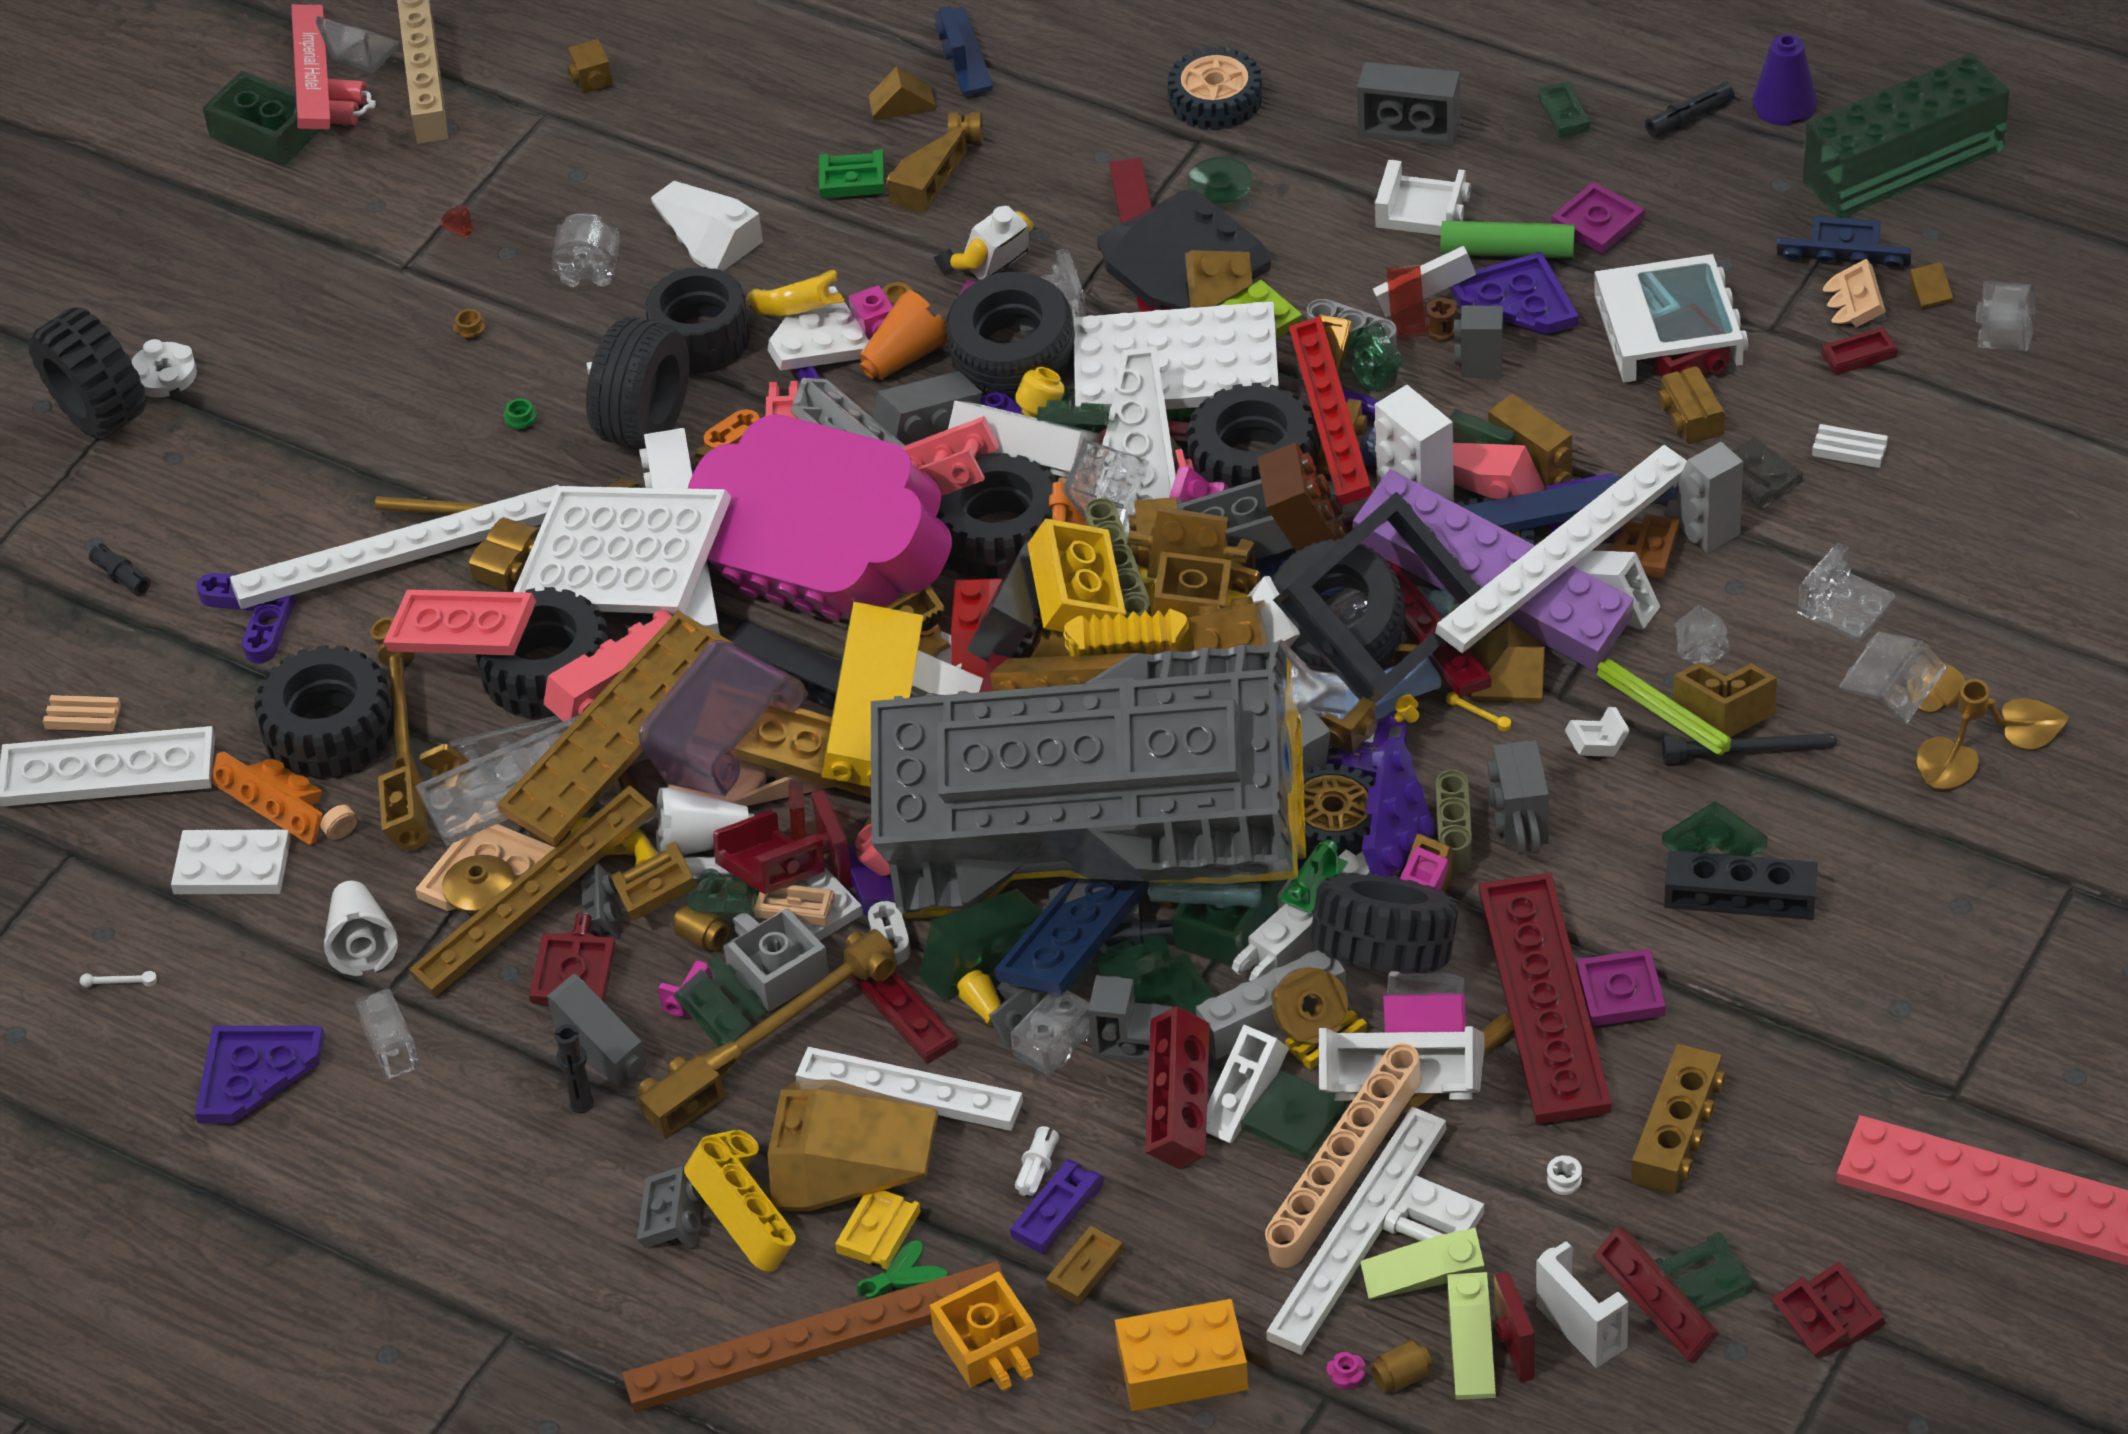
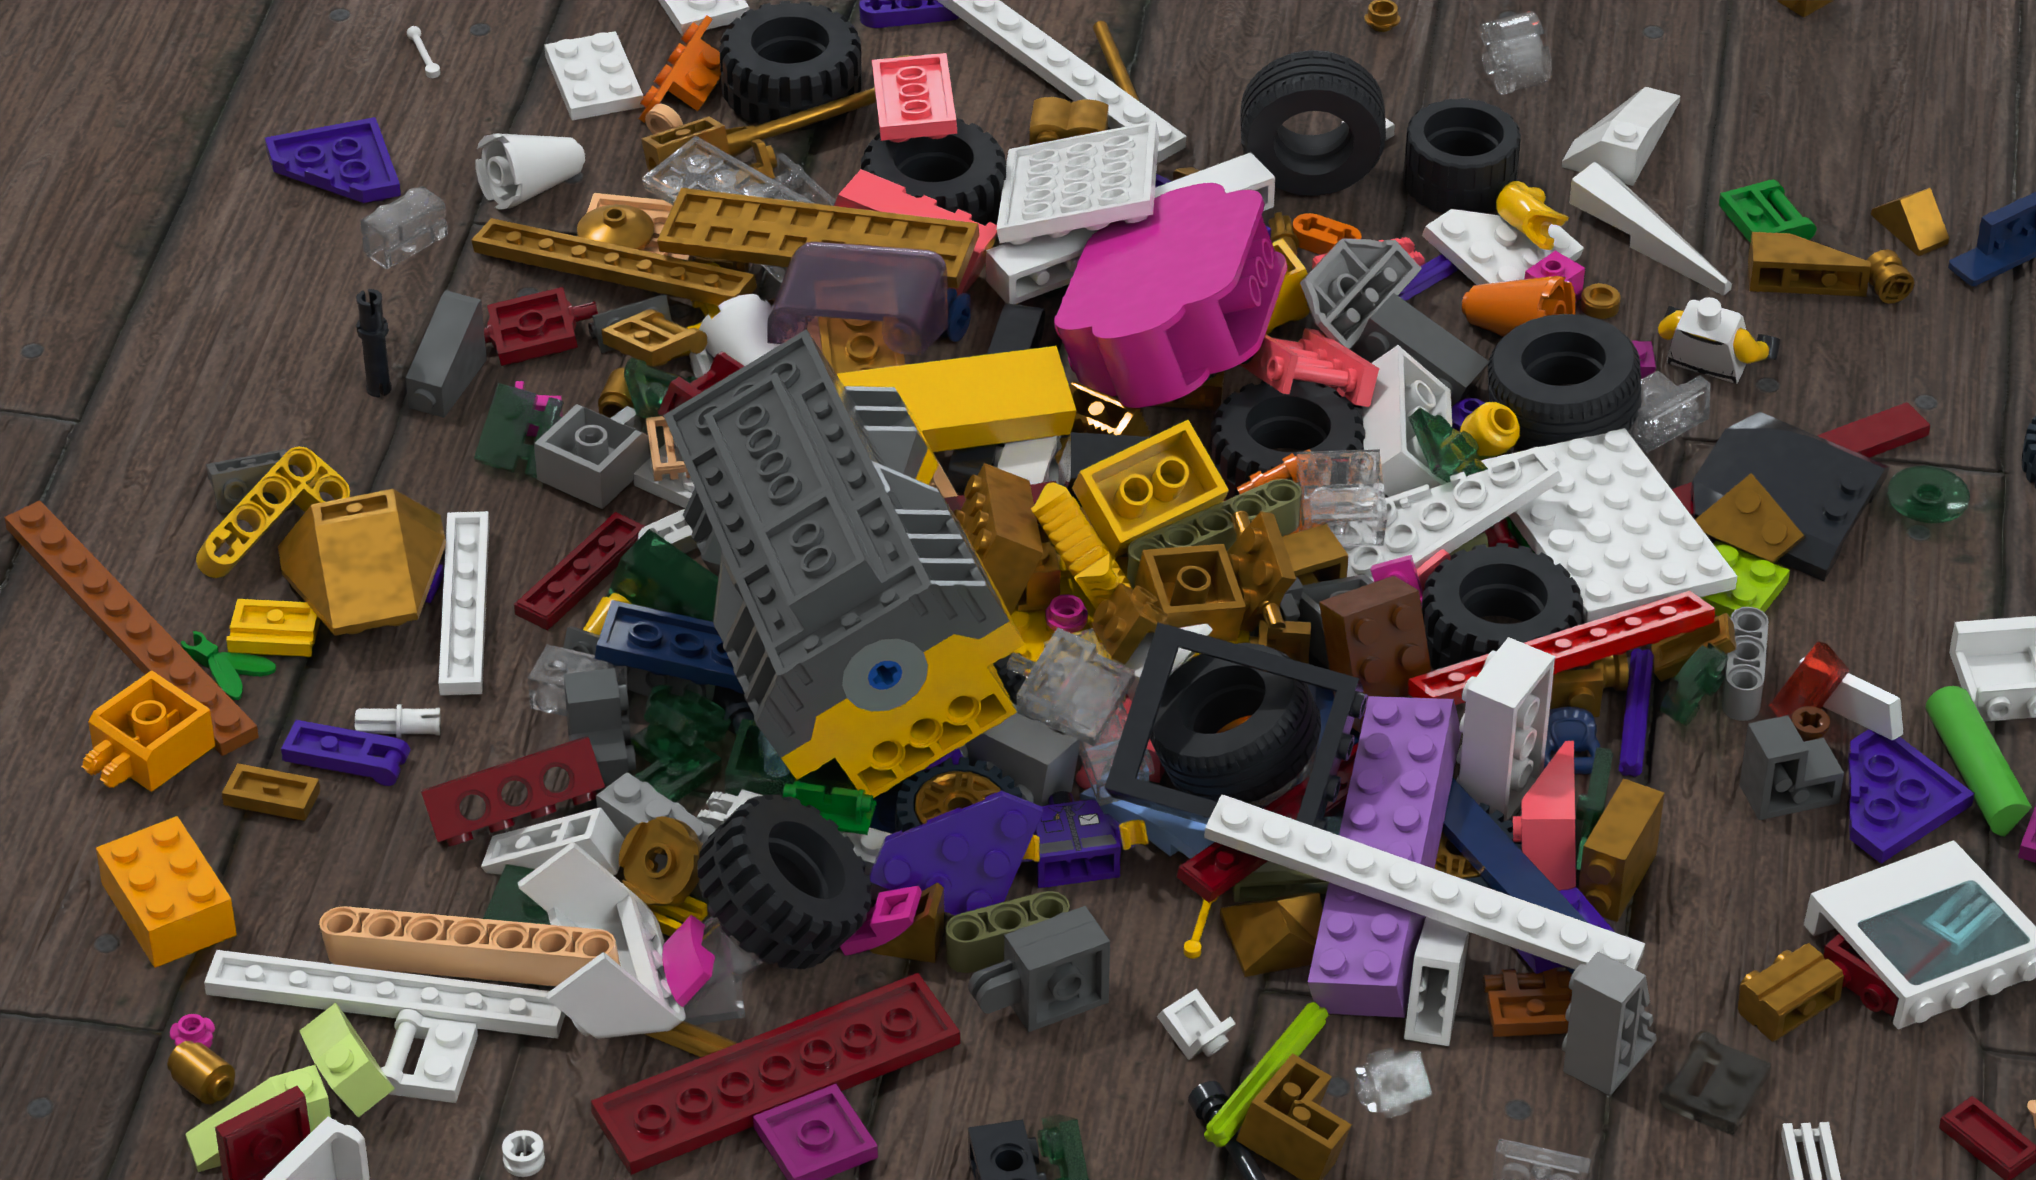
camera: 65 degrees right, 5 degrees down
(697, 1083) = (414, 448): pearl gold bar -> none
(794, 253) = (1612, 201): none -> white wedge
(1354, 728) = (1079, 793): pearl gold bracket -> none

